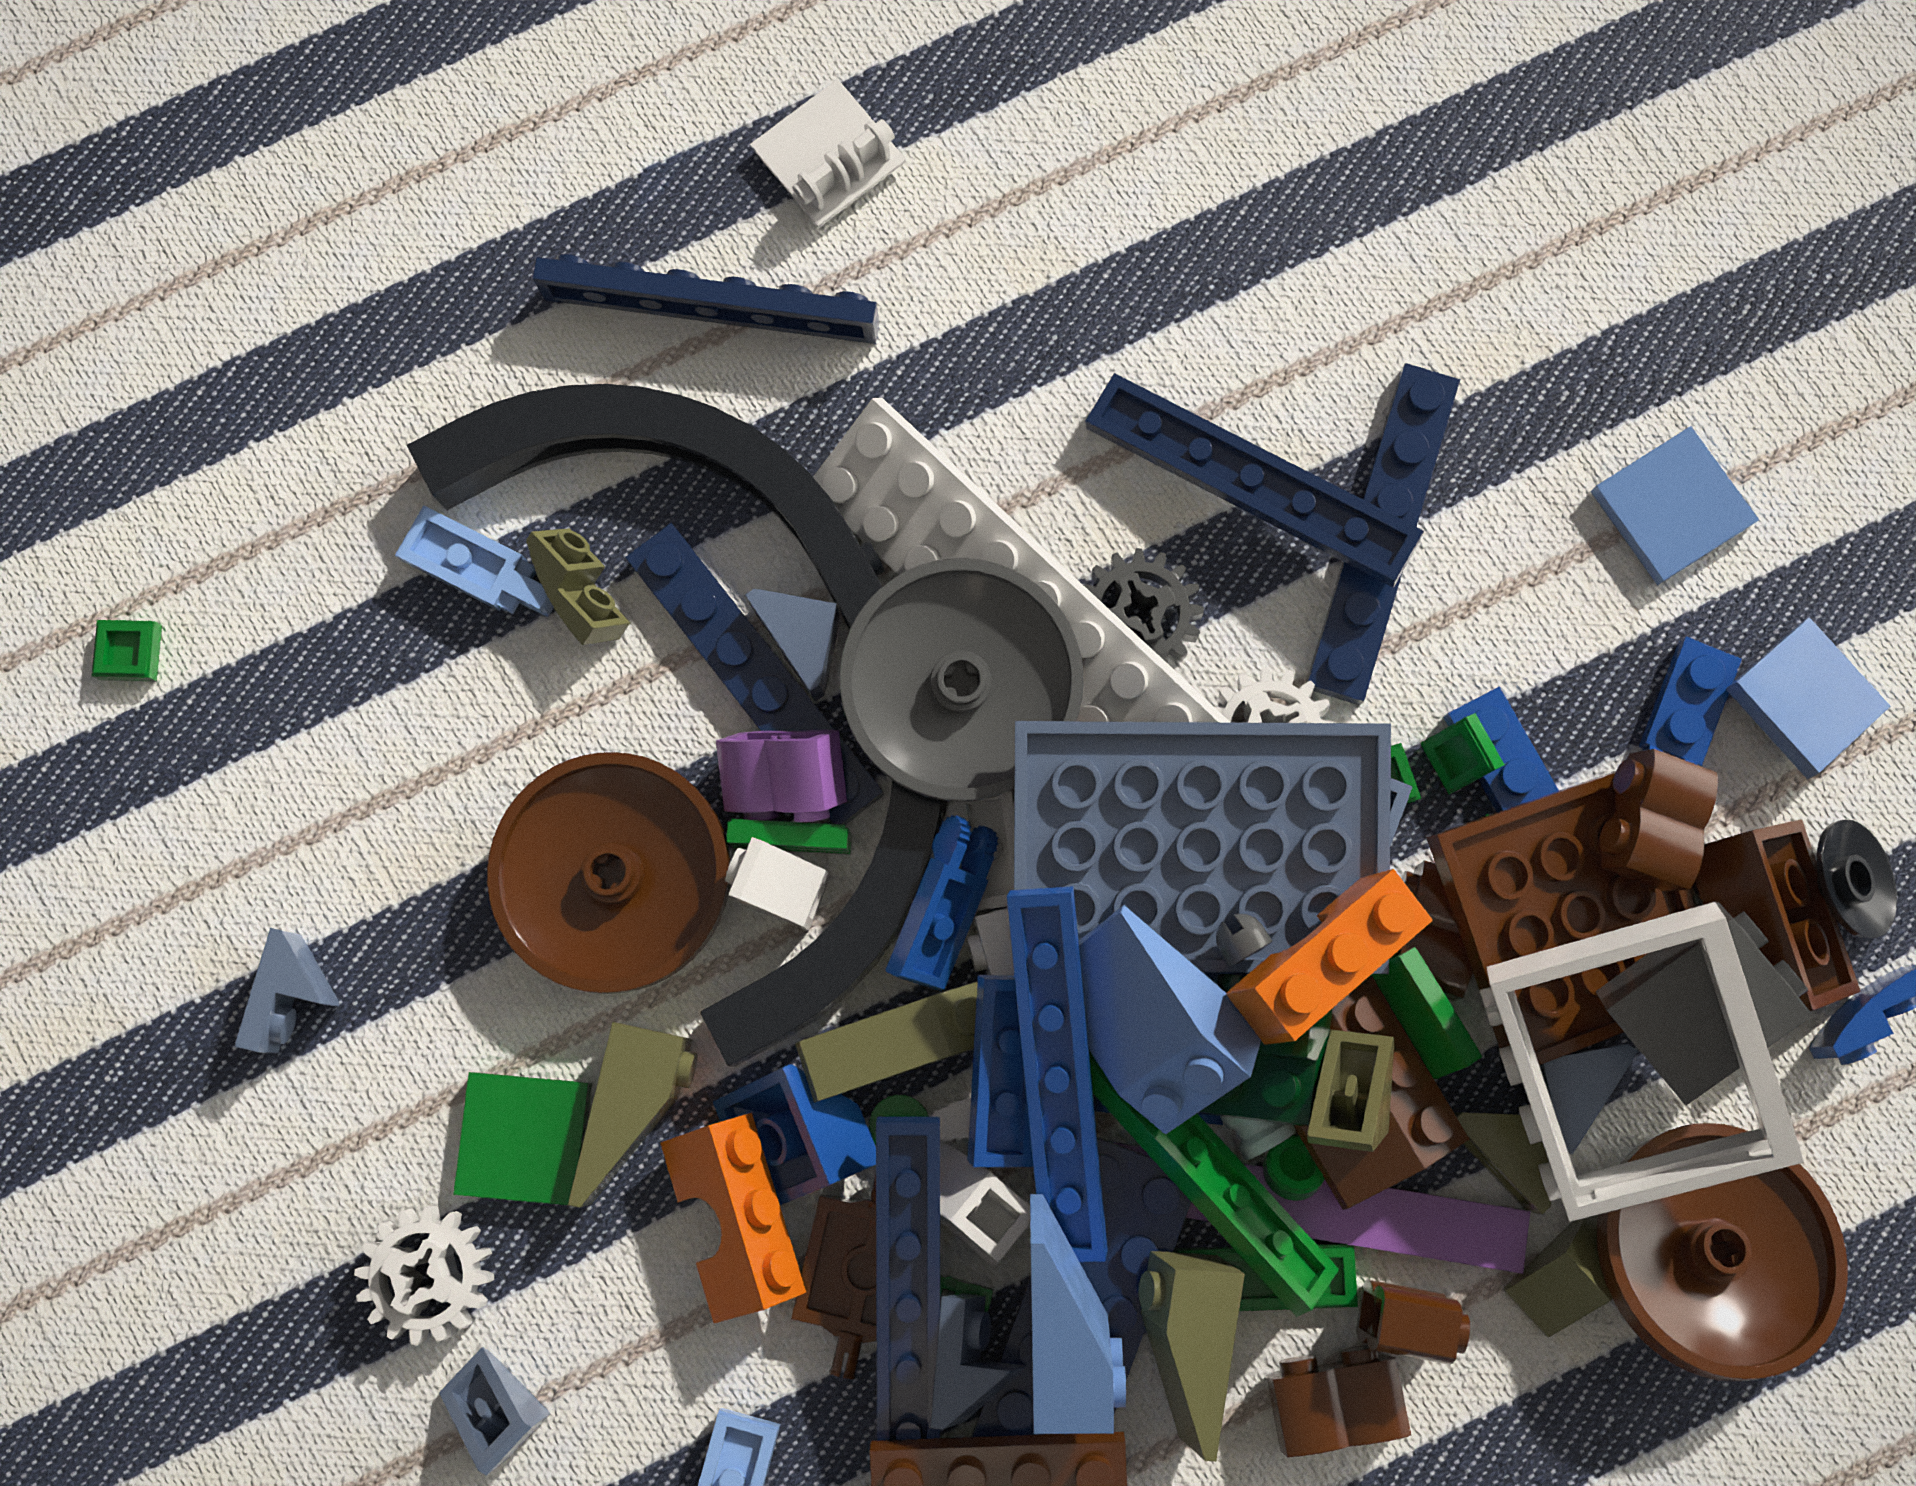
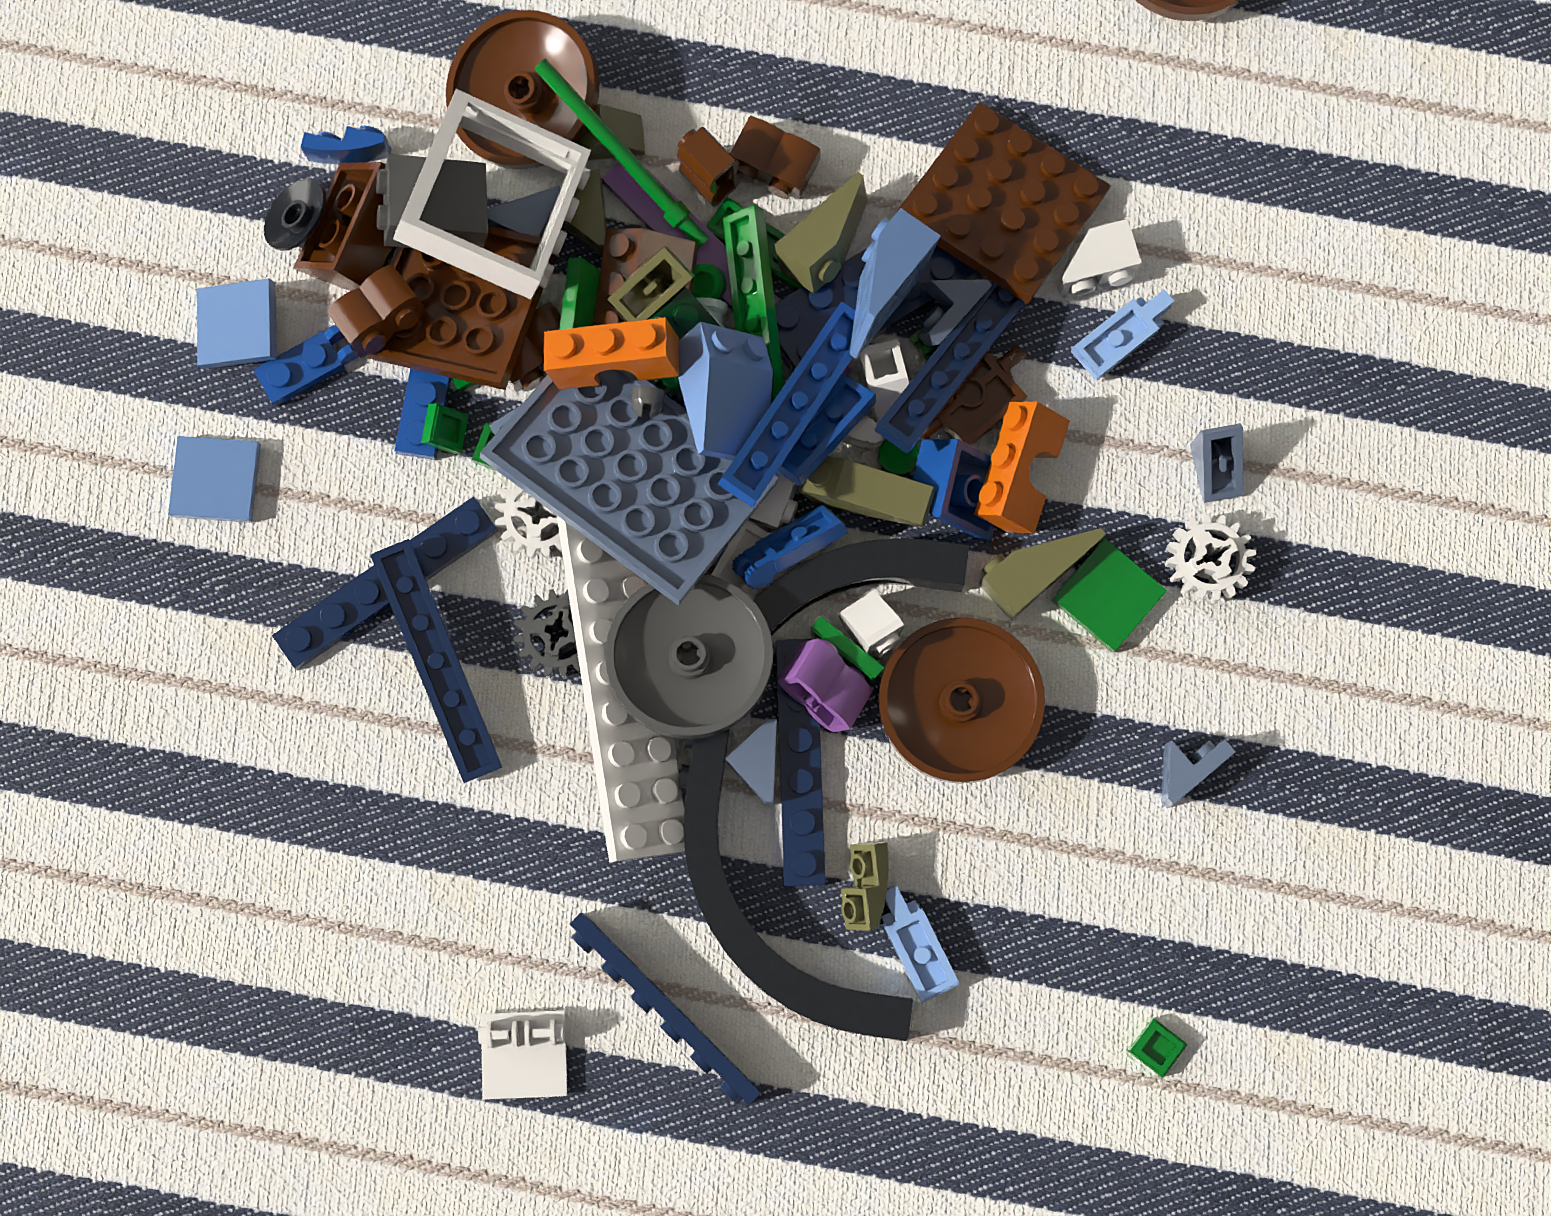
camera: 150 degrees left, 0 degrees up
(1401, 1230) = (675, 212): none -> green bar

